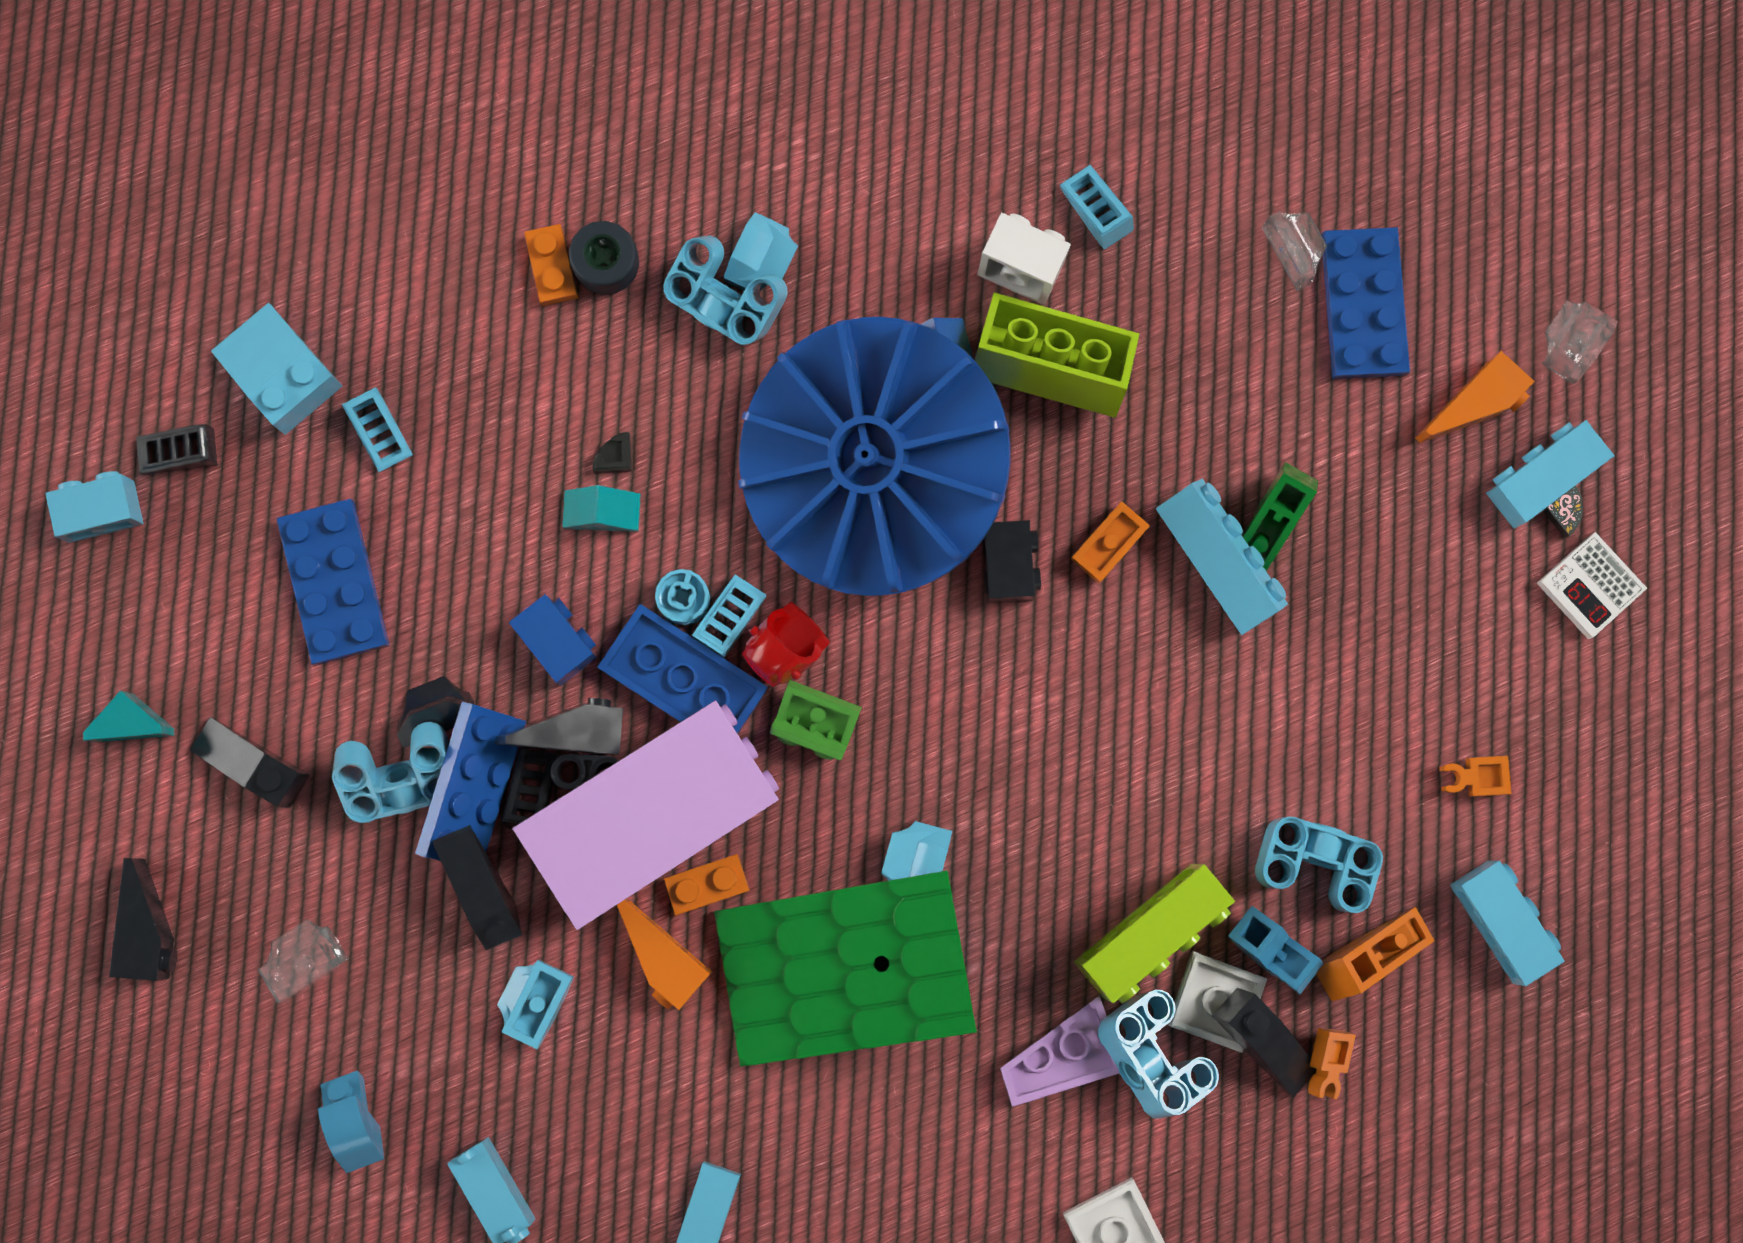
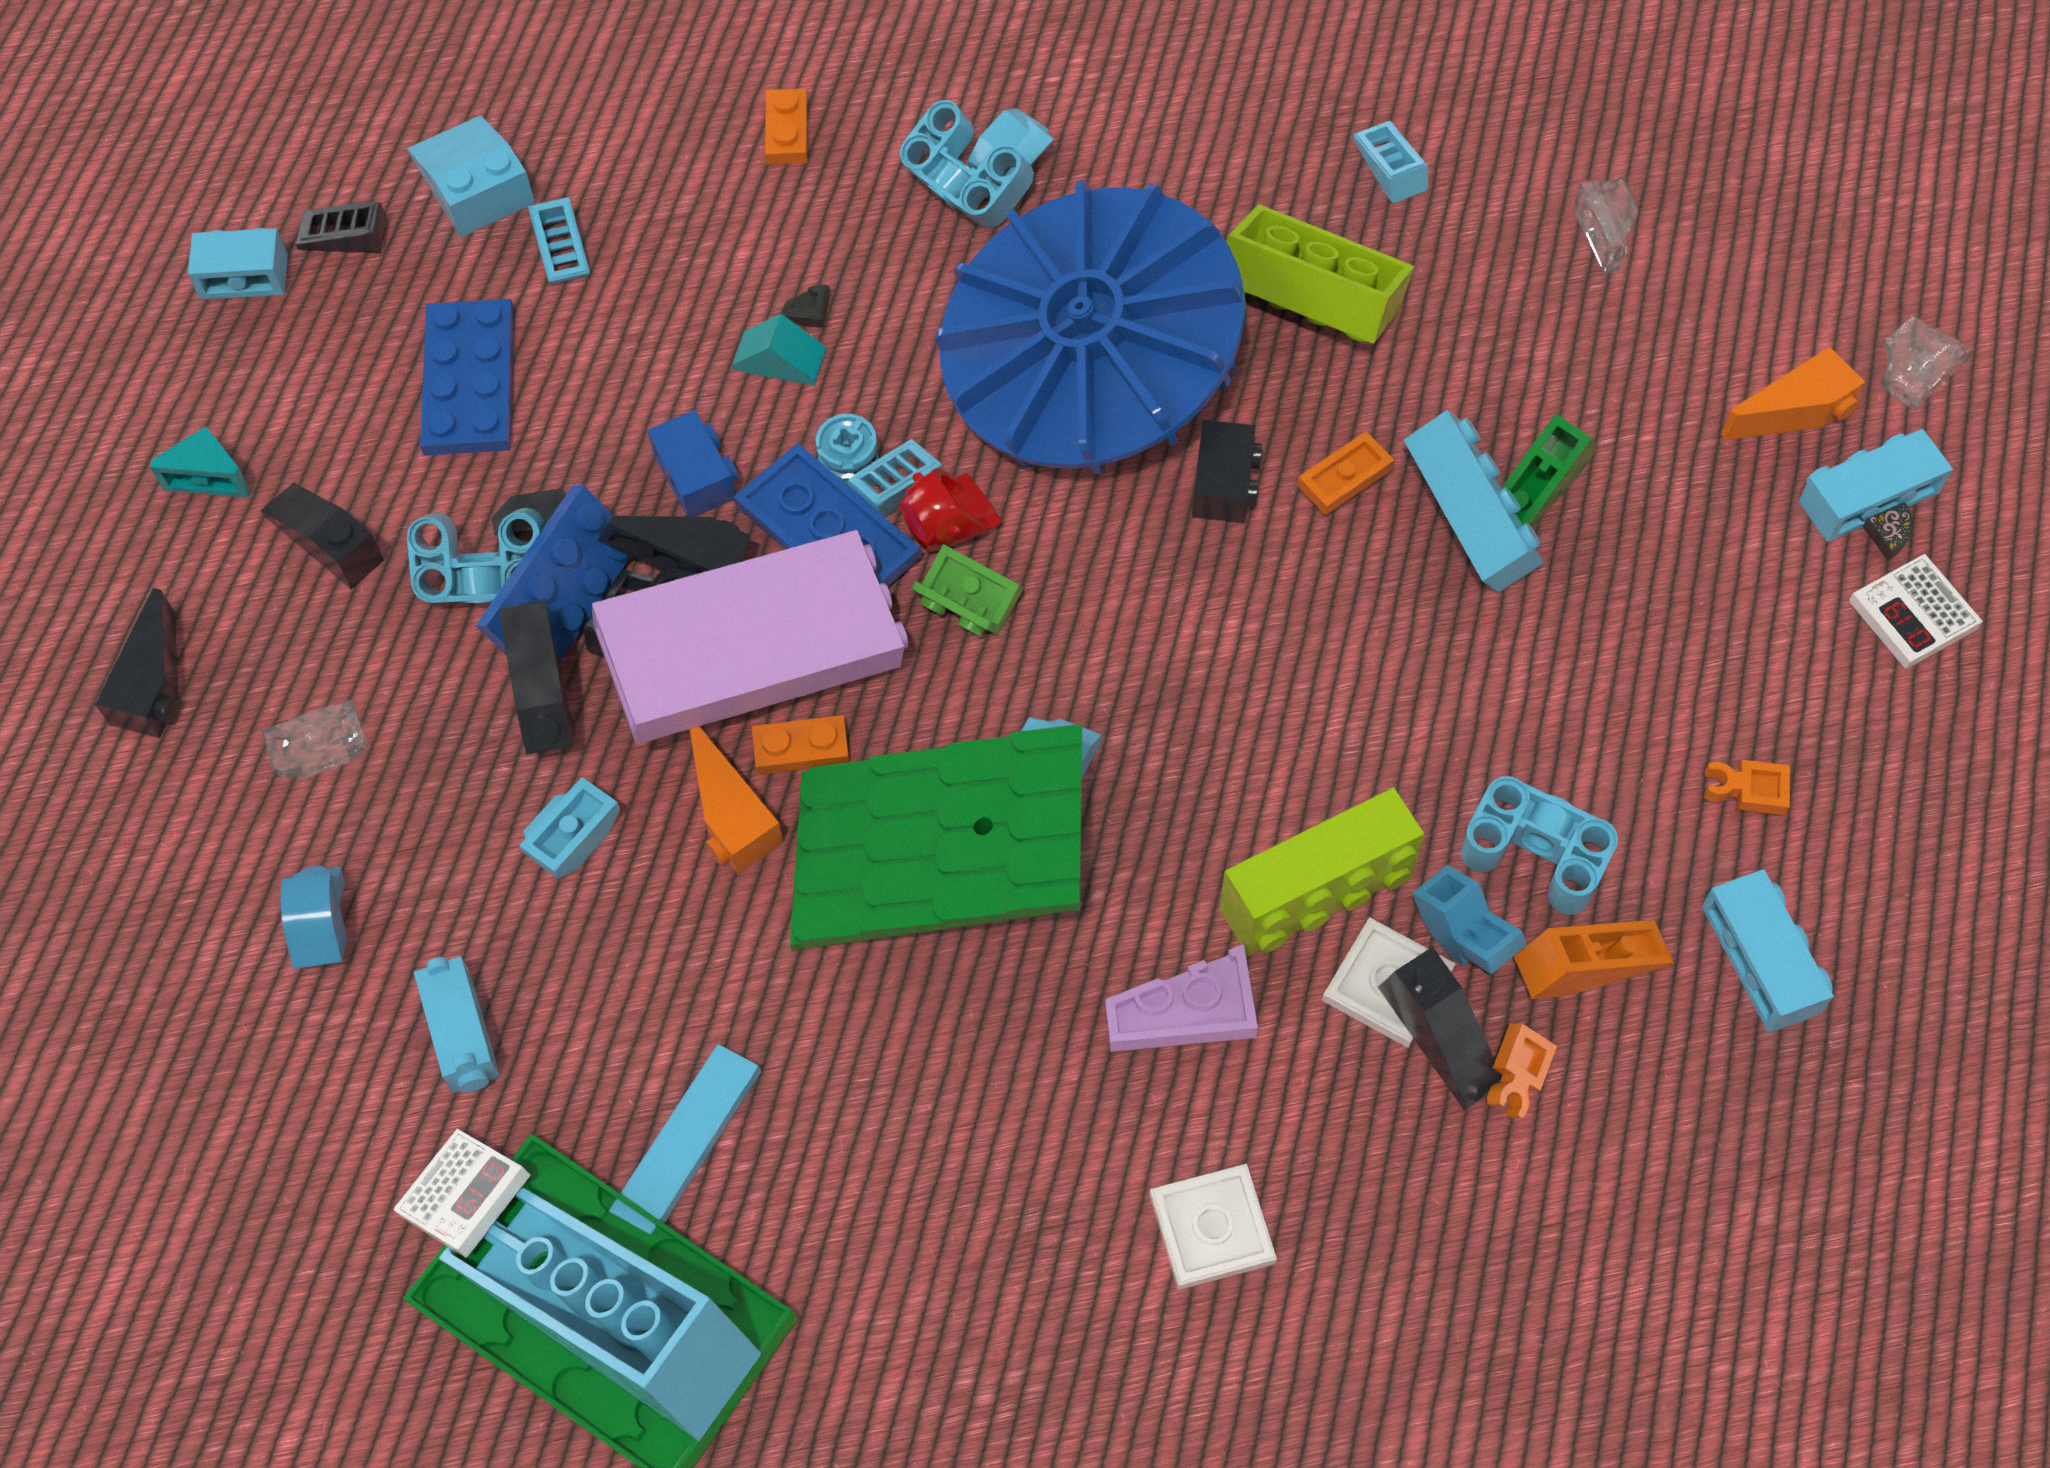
camera: 20 degrees right, 20 degrees down
(598, 244) = (844, 123): black wheel -> none
(1023, 257) = (1298, 176): white brick -> none
(1145, 1065) = (1296, 1045): medium azure beam -> none
(1365, 303) = (1680, 294): blue plate -> none

